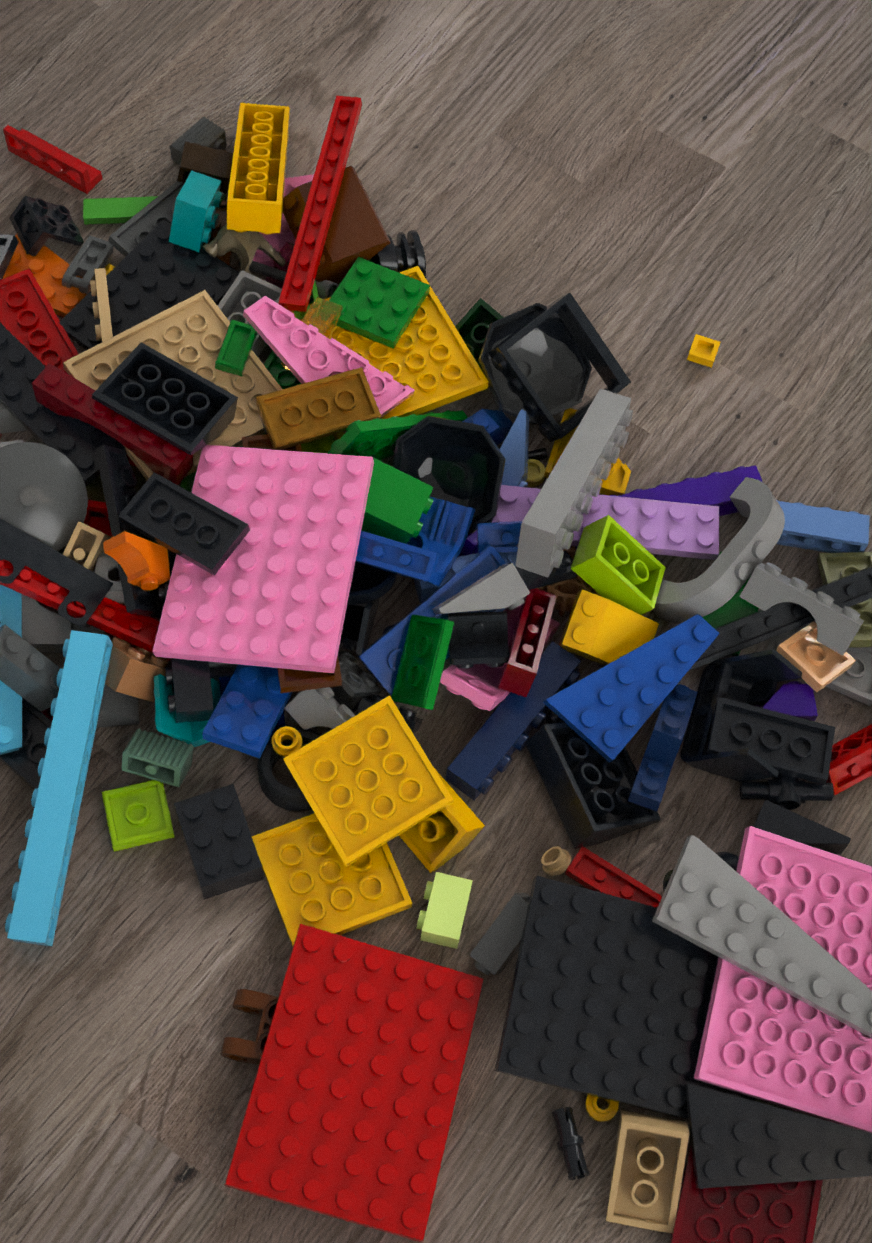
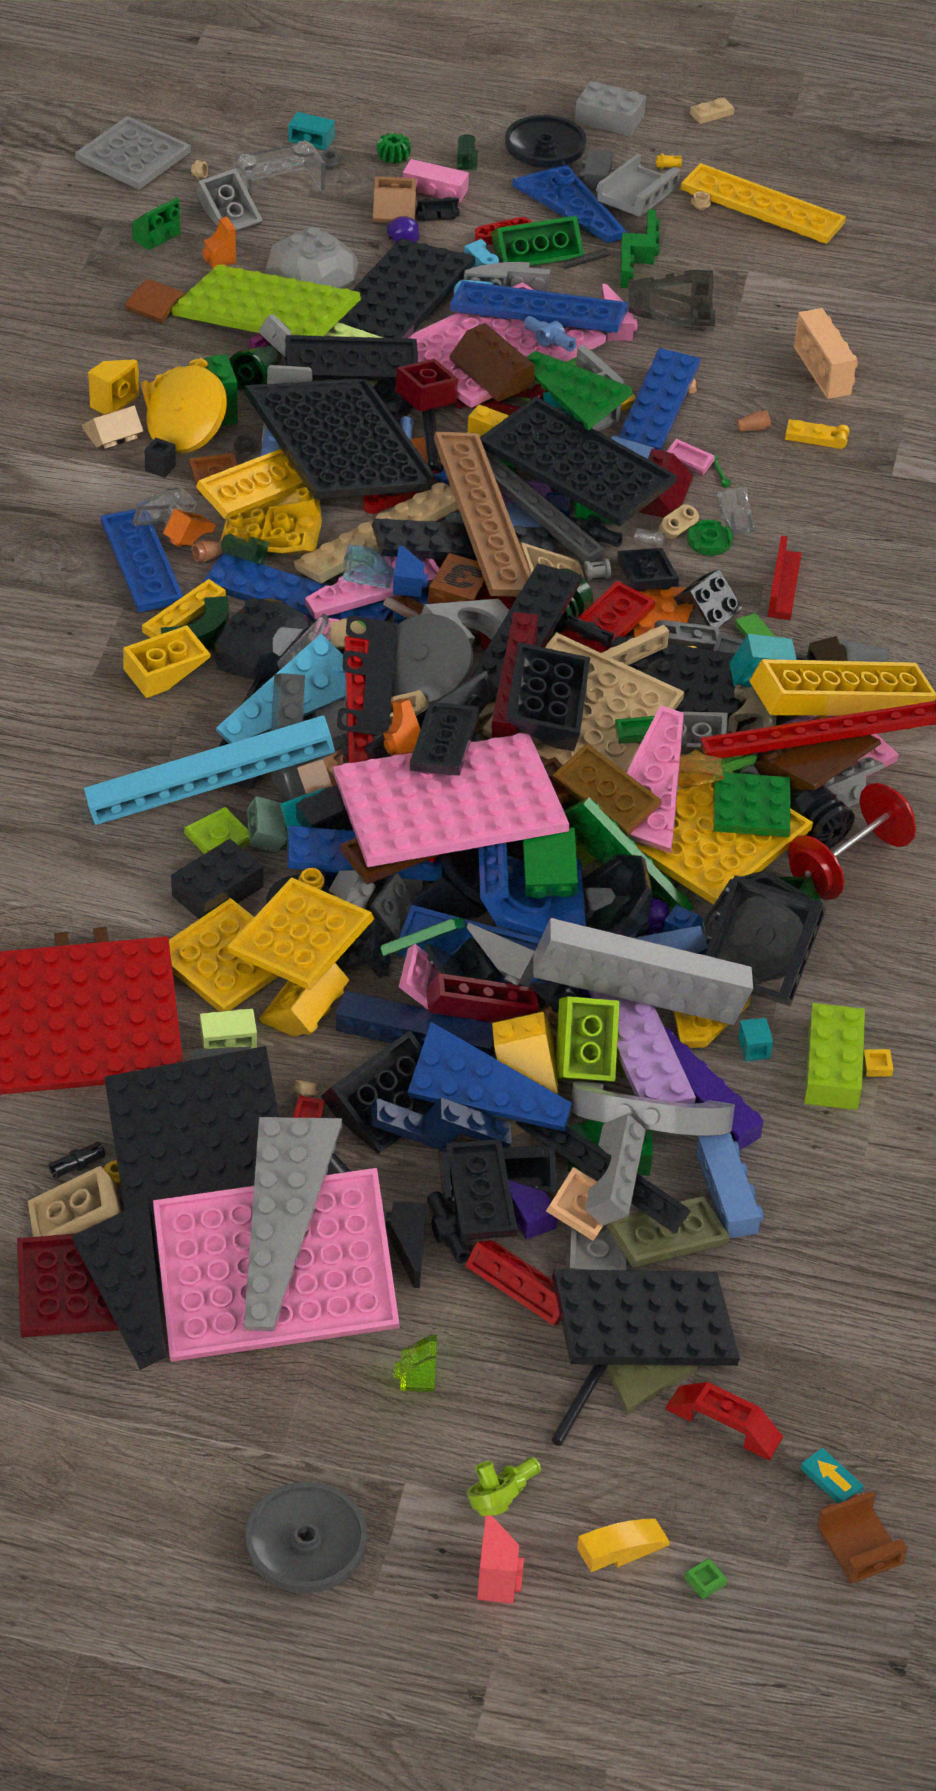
camera: 70 degrees right, 15 degrees down
(45, 339) = (589, 631): none -> black pin
(426, 209) = (886, 815): none -> red axle
(643, 432) = (755, 1039): none -> teal brick
(688, 378) = (835, 1056): none -> lime brick

